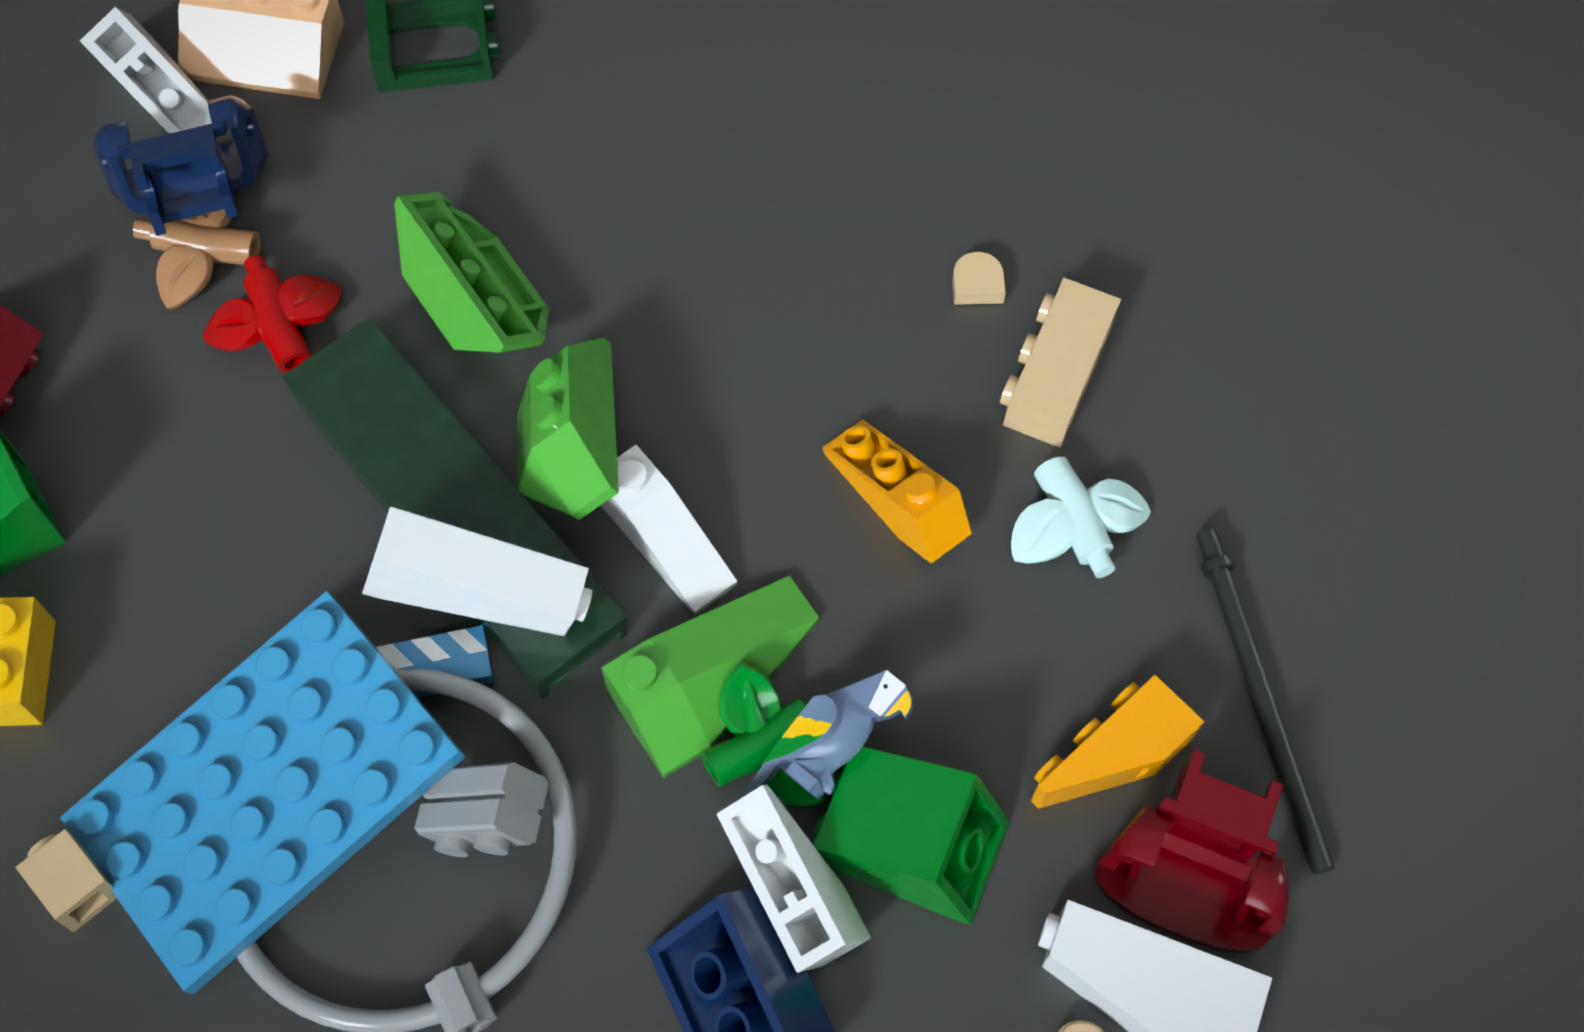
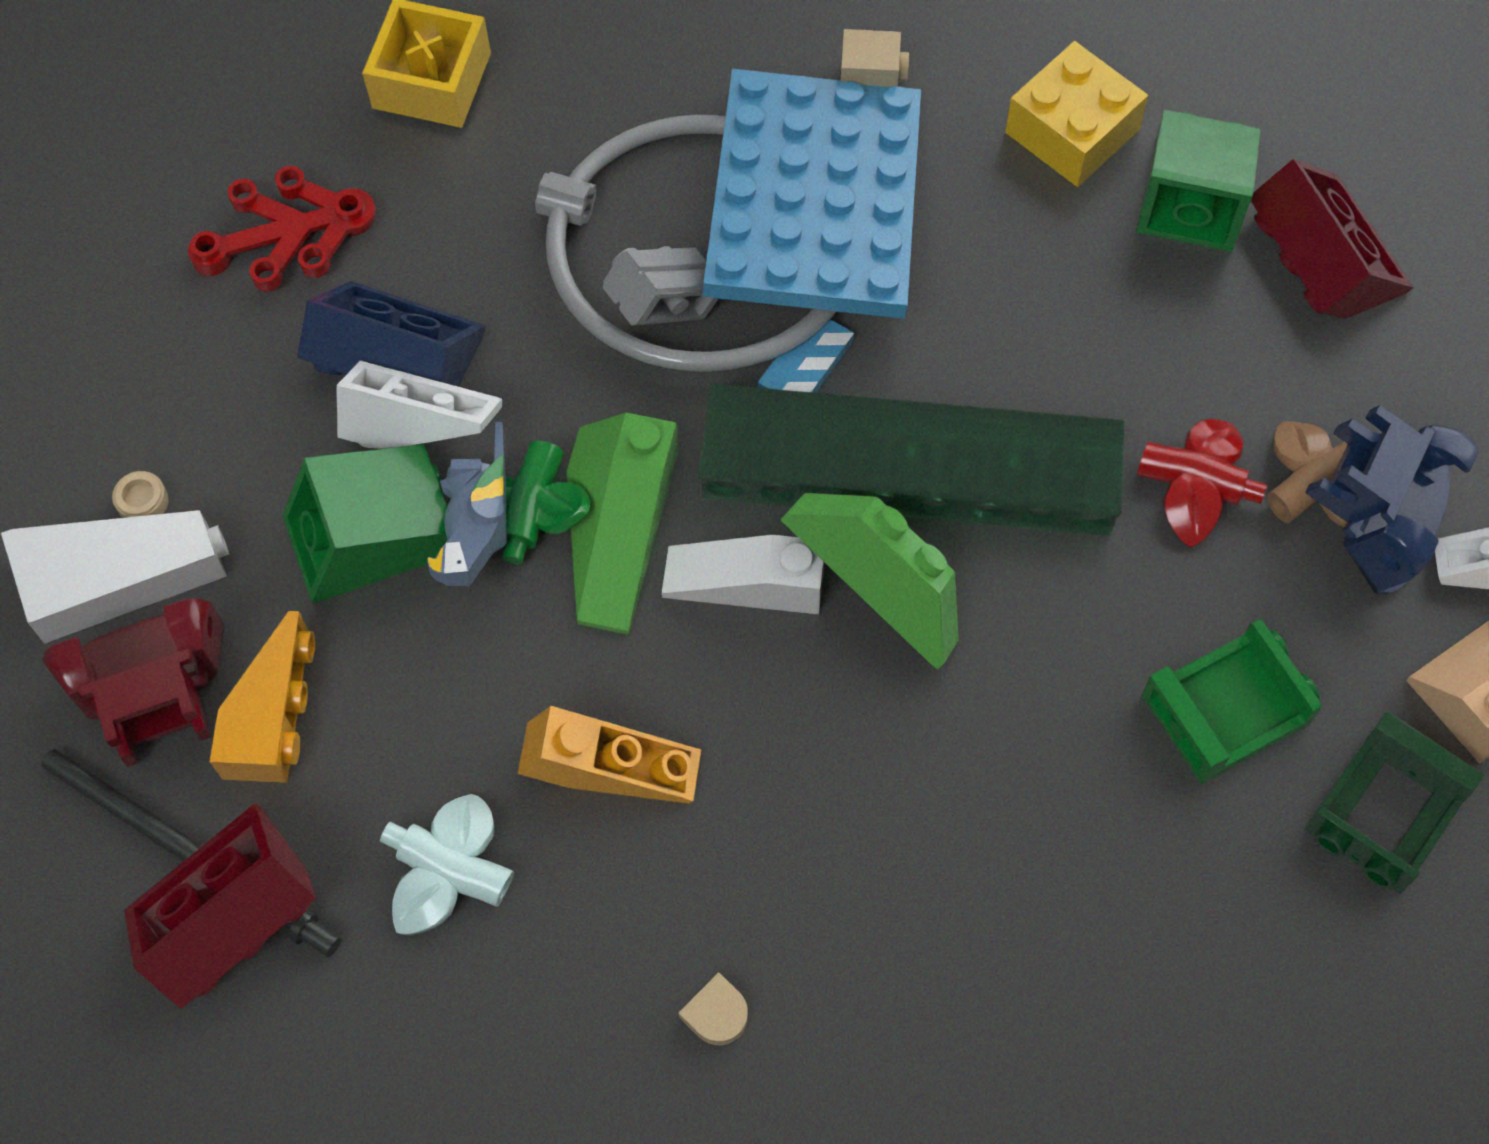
camera: 140 degrees right, 0 degrees up
(446, 159) = (1233, 701): none -> green panel
(466, 278) = (1088, 621): bright green wedge -> none
(475, 576) = (816, 383): white slope -> none
(1058, 361) = (577, 987): tan brick -> none
(1277, 615) = (217, 907): none -> dark red slope

